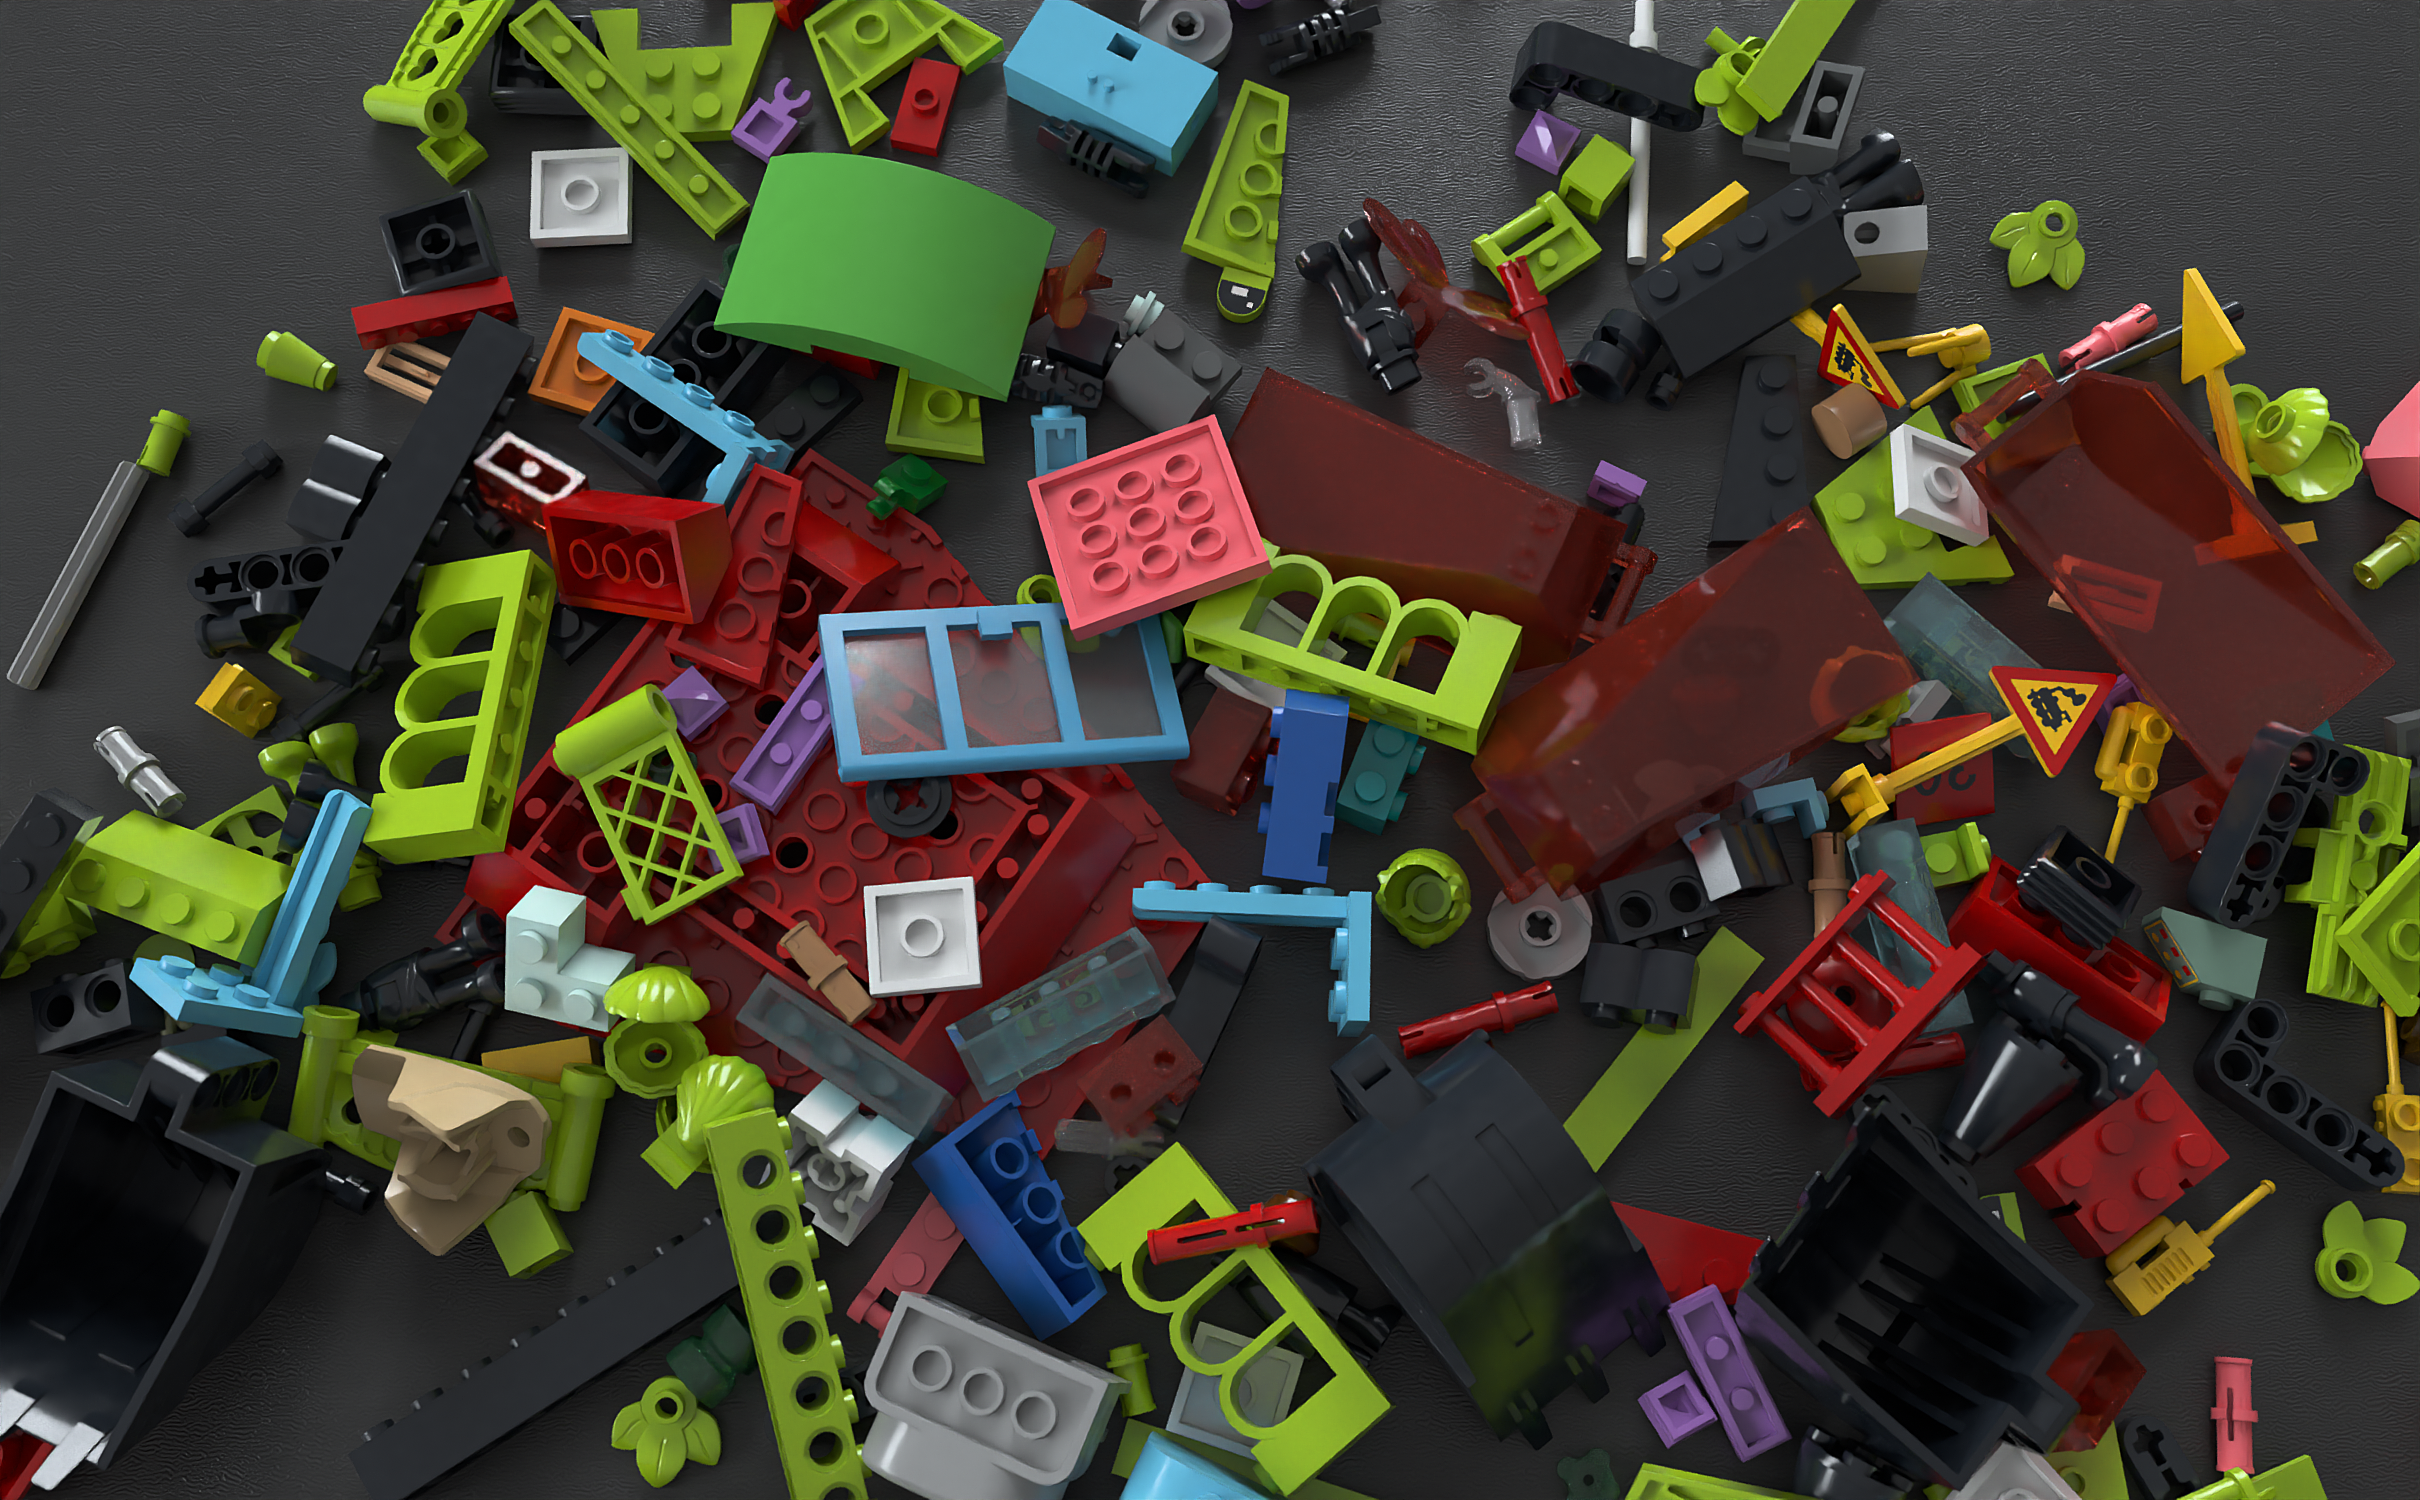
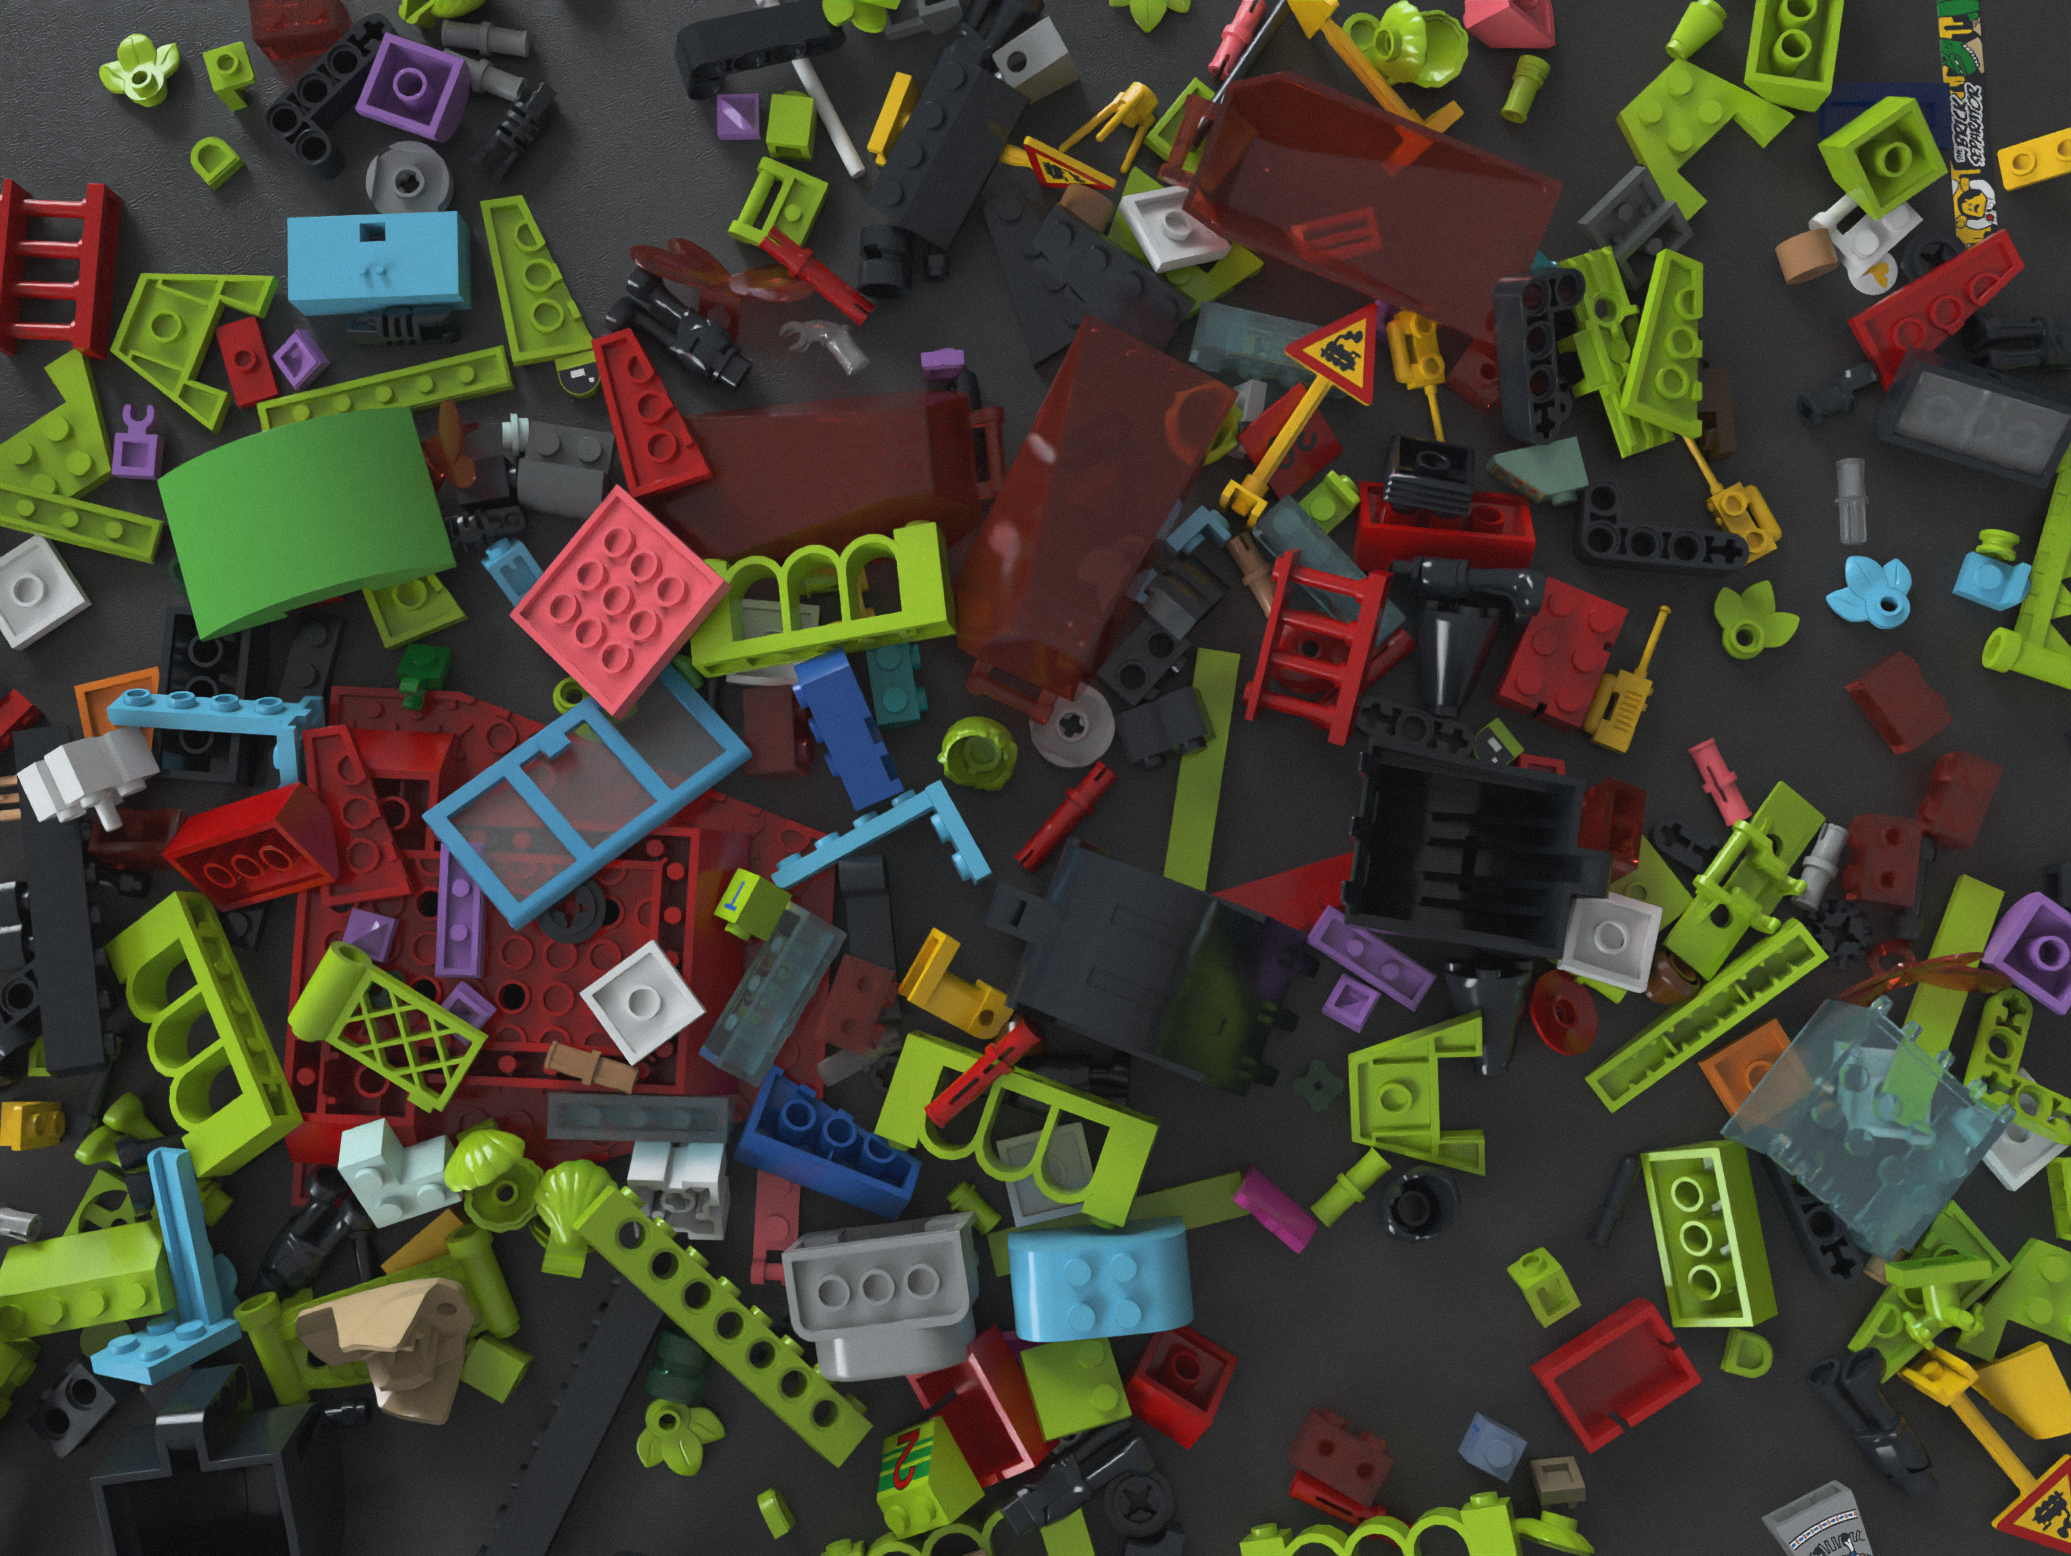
camera: 30 degrees left, 10 degrees up
(523, 389) = (90, 775): none -> white brick
(978, 130) = (301, 359): none -> medium lavender tile
(1094, 909) = (752, 906): none -> lime brick
(1130, 234) = (415, 387): none -> lime tile
(1245, 1132) = (968, 1006): none -> yellow piece
(1279, 378) = (648, 427): none -> red wing
(1846, 495) = (1113, 280): none -> black wing

